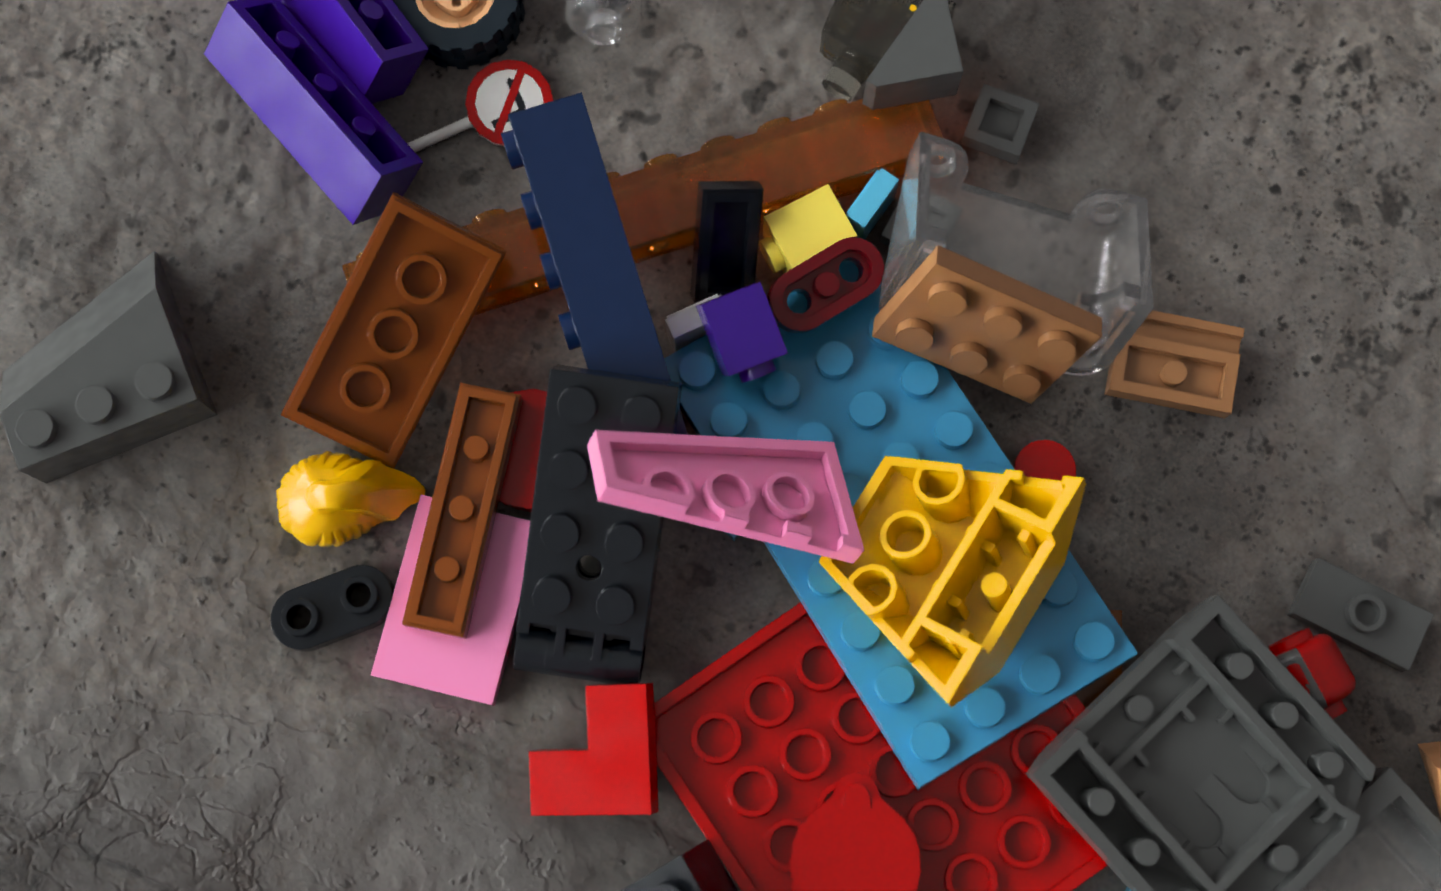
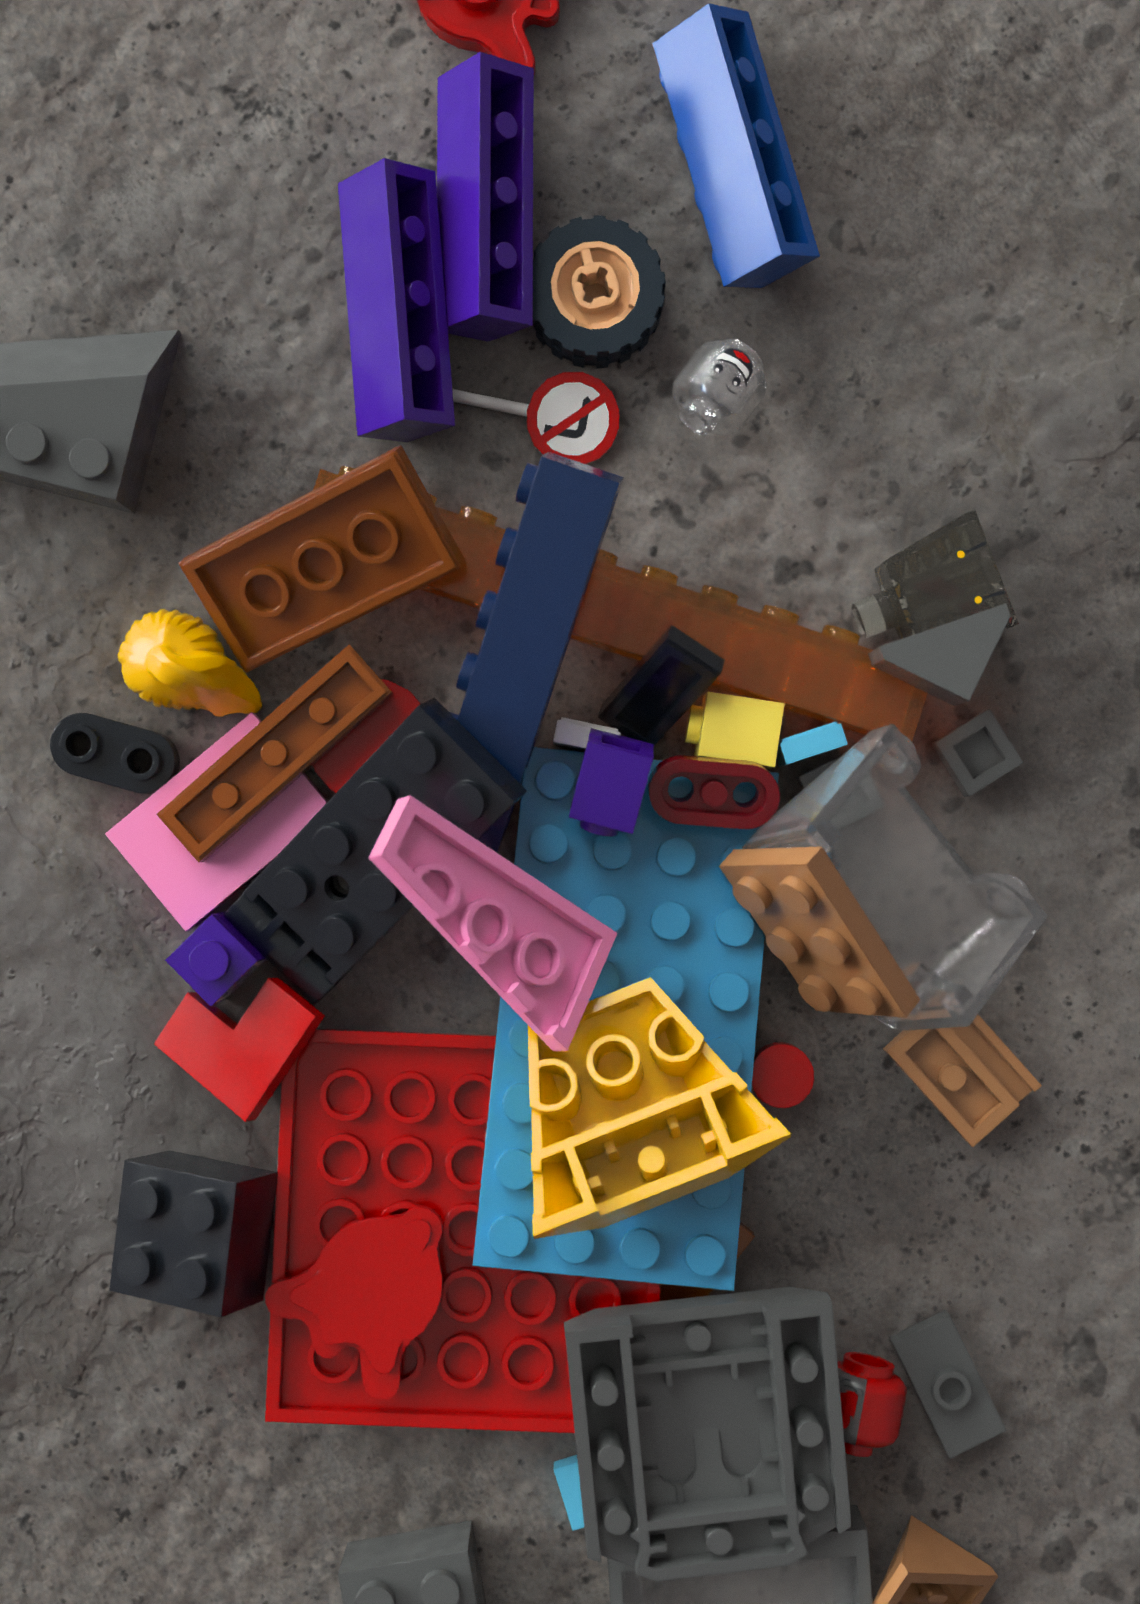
camera: 35 degrees right, 10 degrees up
(533, 702) = (215, 959): none -> dark purple brick

